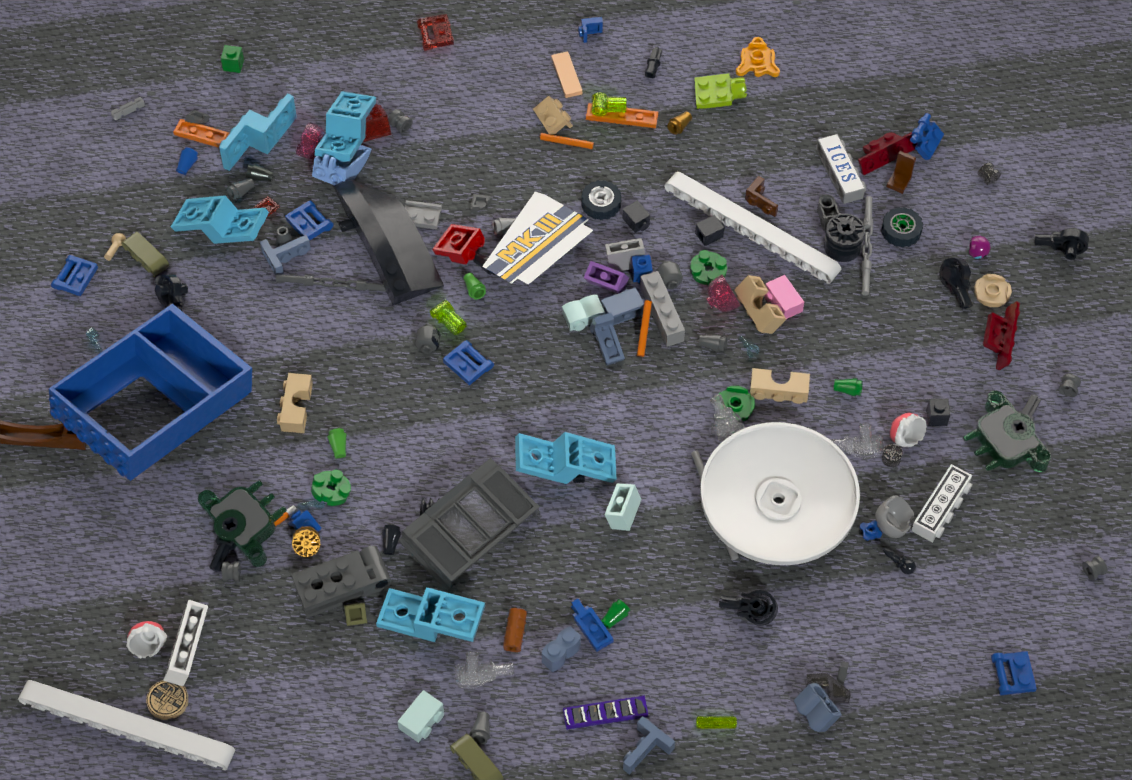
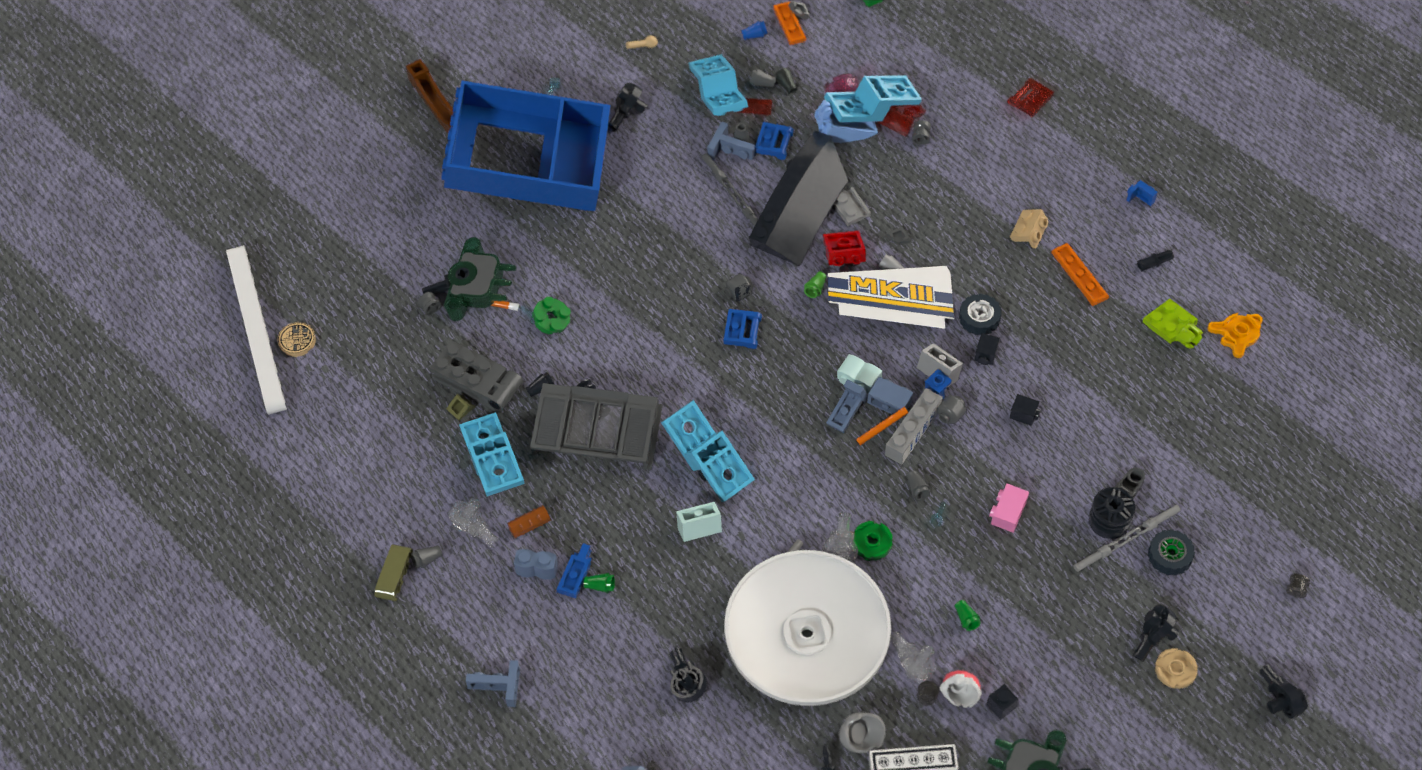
camera: 55 degrees right, 0 degrees up
(78, 279) = (595, 39): blue plate -> none
(145, 253) = (649, 64): olive beam -> none
(146, 639) = (330, 290): white hair -> none
(185, 643) = (344, 315): white brick -> none
(258, 131) = (815, 48): medium azure bracket -> none
(296, 388) = (616, 234): tan arch -> none
(303, 519) = (506, 321): blue bracket -> none
(306, 541) = (491, 331): pearl gold wheel -> none
(337, 440) = (595, 293): bright green cone -> none
(421, 716) = (403, 508): light aqua brick -> none
(448, 317) = (770, 287): clear neon green piece -> none
(566, 74) = (1081, 210): light nougat tile -> none
(568, 141) = (1015, 252): orange bar -> none
(602, 104) = (1072, 251): clear neon green piece -> none
(605, 712) = (508, 634): tile -> none
(606, 277) = (904, 366): medium lavender brick -> none
(677, 124) = (1112, 318): pearl gold cone -> none
(706, 258) = (991, 424): green plate -> none
(716, 722) = (561, 721): clear neon green axle -> none
(721, 295) = (967, 457): clear pink cylinder -> none
(750, 294) = (975, 506): tan arch -> none
(754, 227) = (1060, 442): white beam -> none
(755, 198) = (1095, 415): reddish brown bracket -> none
(794, 390) = (926, 575): tan arch -> none
(840, 168) = (1184, 465): brick -> none
(868, 535) = (832, 724): blue plate -> none
(884, 151) = (1242, 489): dark red bracket -> none
(903, 172) = (1225, 518): reddish brown bracket -> none
(929, 140) = (1285, 515): blue plate -> none
(979, 247) = (1209, 627): magenta piece -> none
(1001, 333) = (1131, 701): dark red bracket -> none

